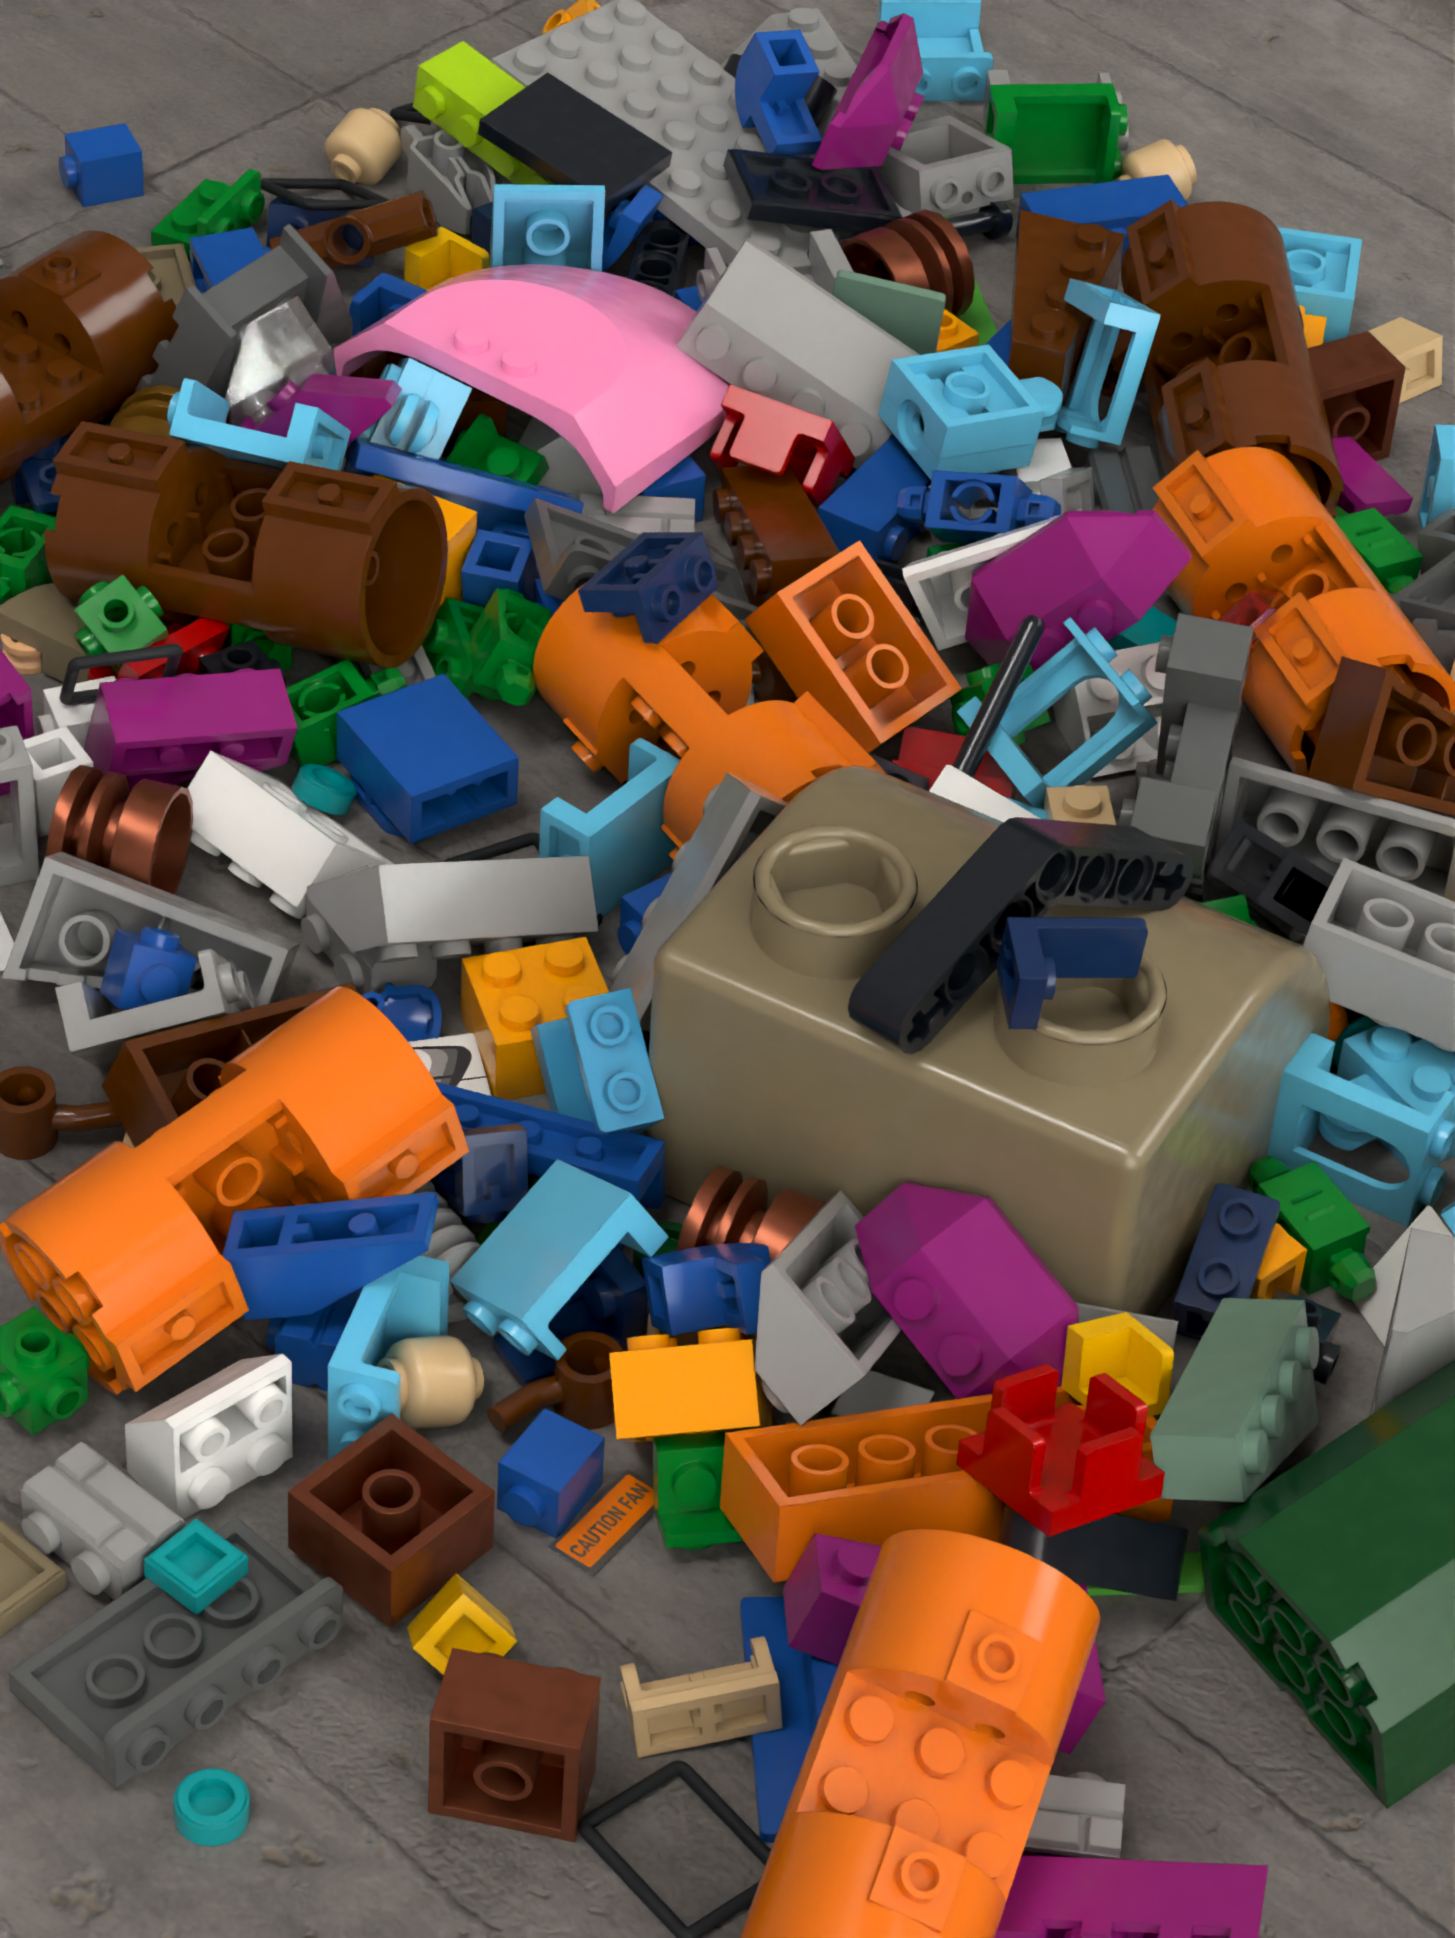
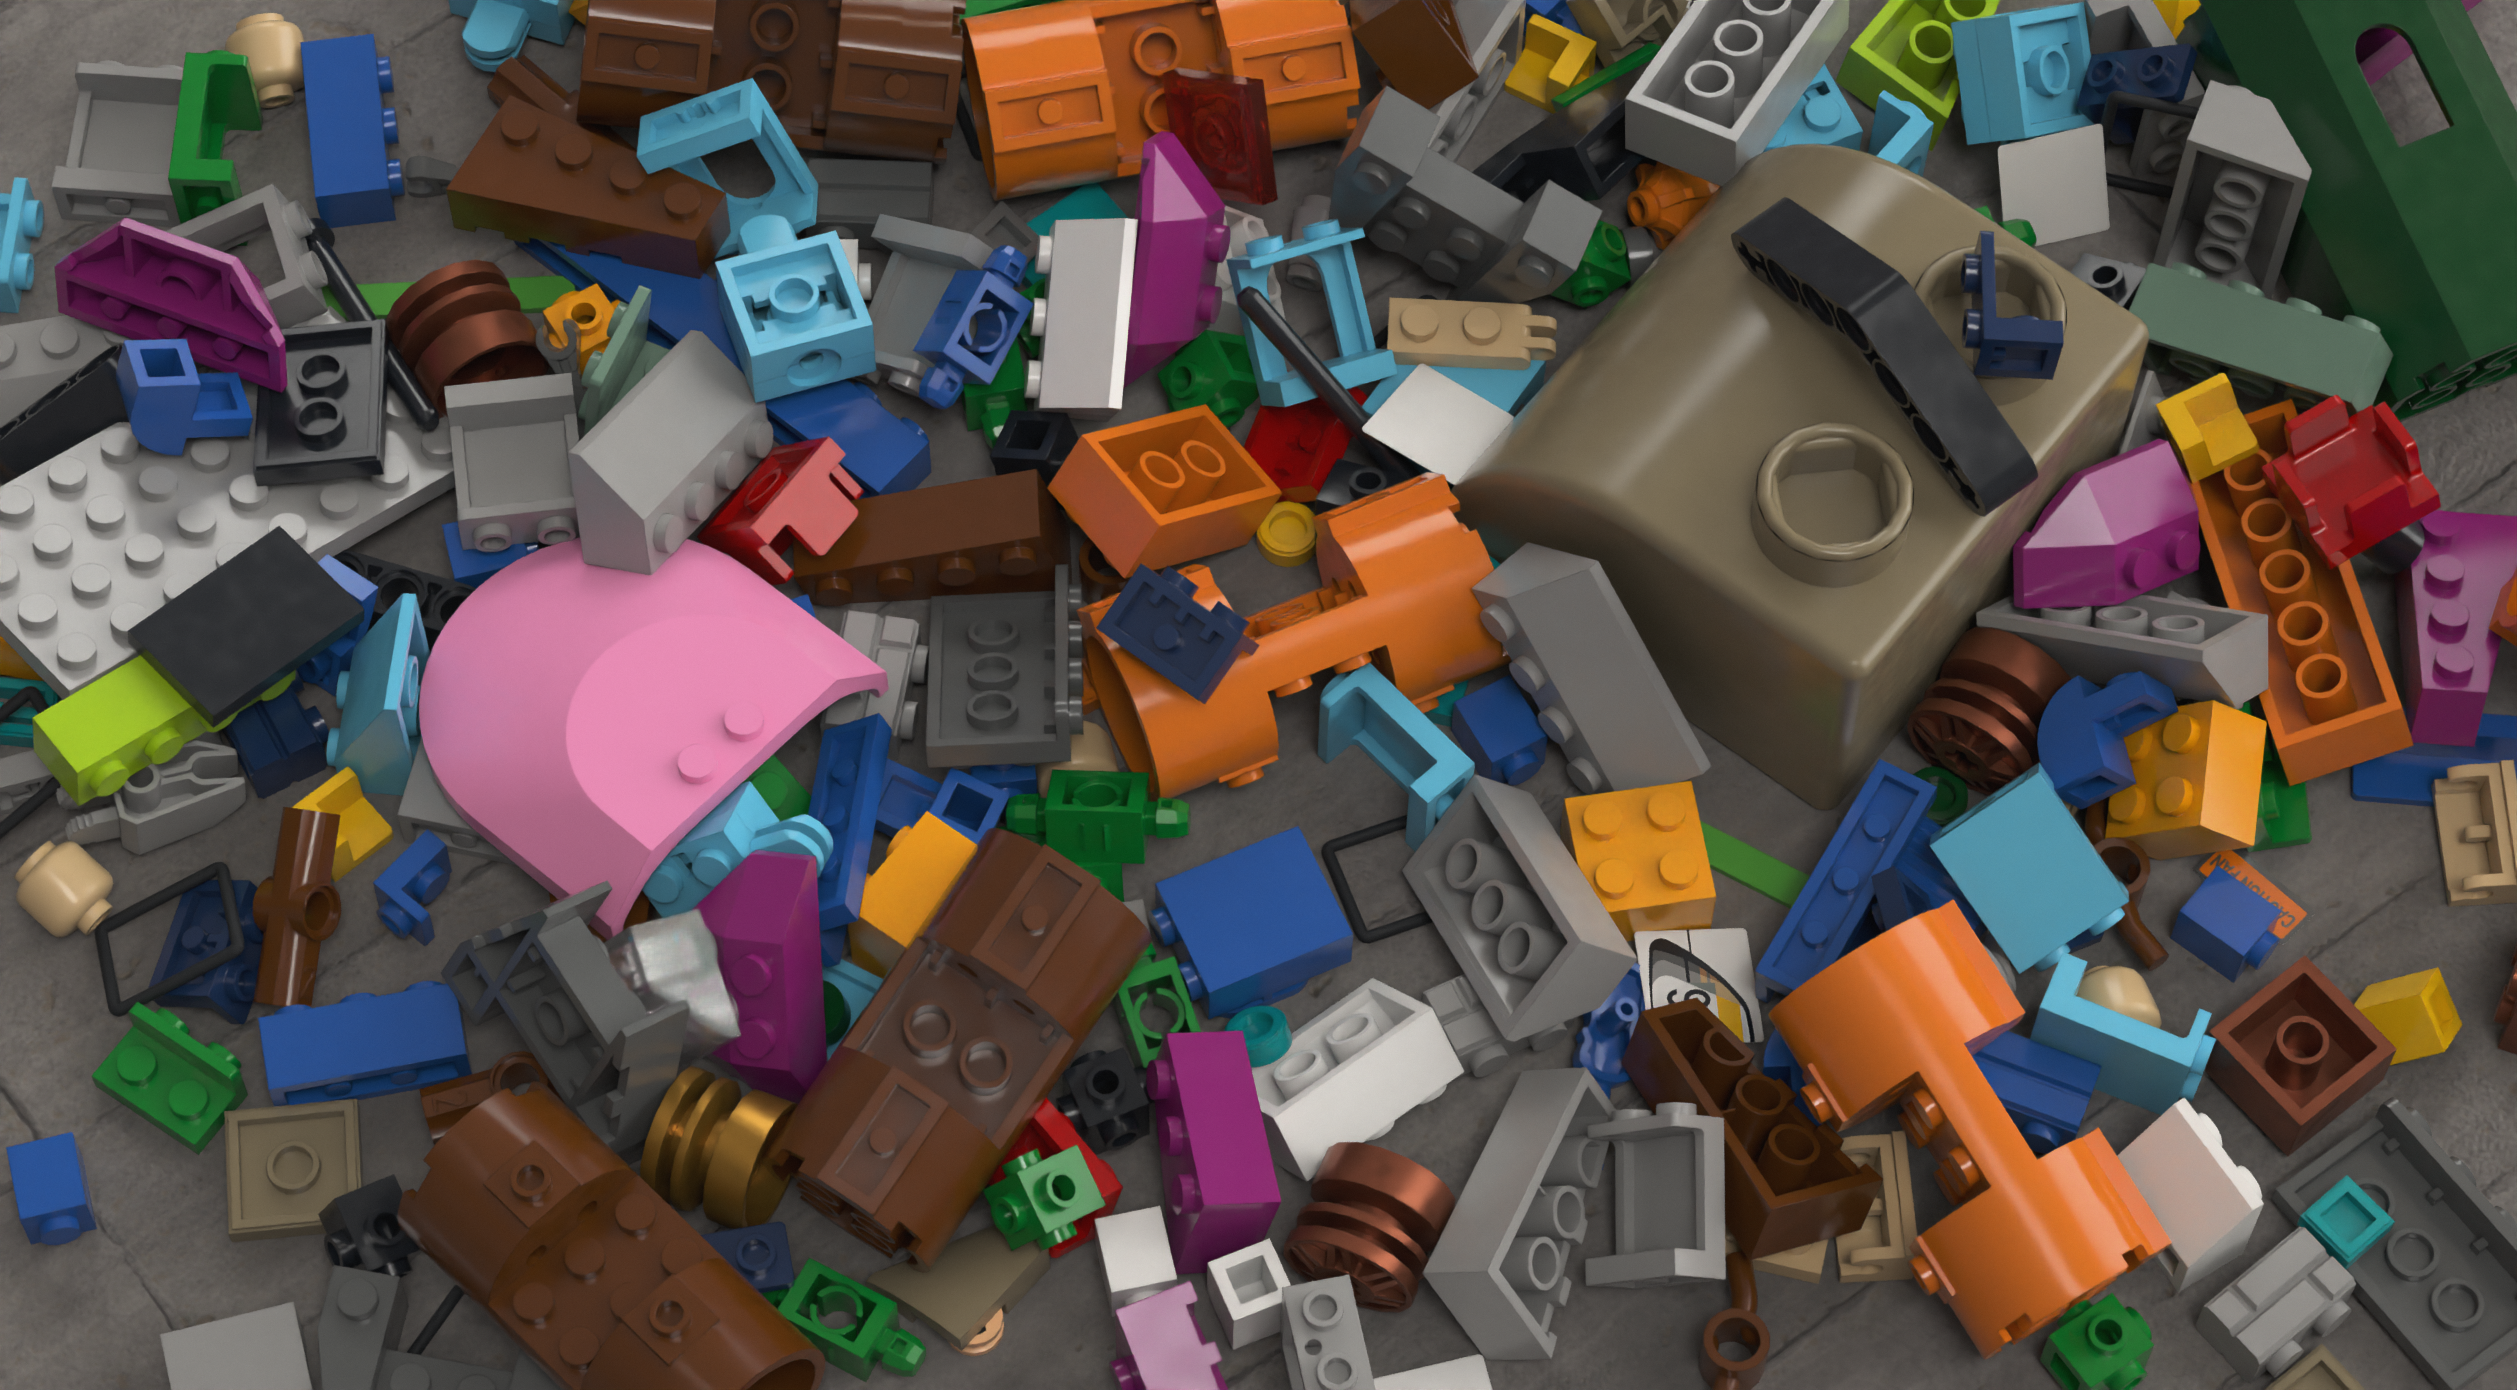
camera: 80 degrees left, 20 degrees up
(68, 696) = (1210, 1116): black piece -> none
(146, 968) = (1617, 1200): blue brick -> none
(312, 438) = (855, 1003): medium azure panel -> none
(320, 1252) = (2055, 1040): blue slope -> none
(599, 1064) = (1766, 804): dark azure panel -> none

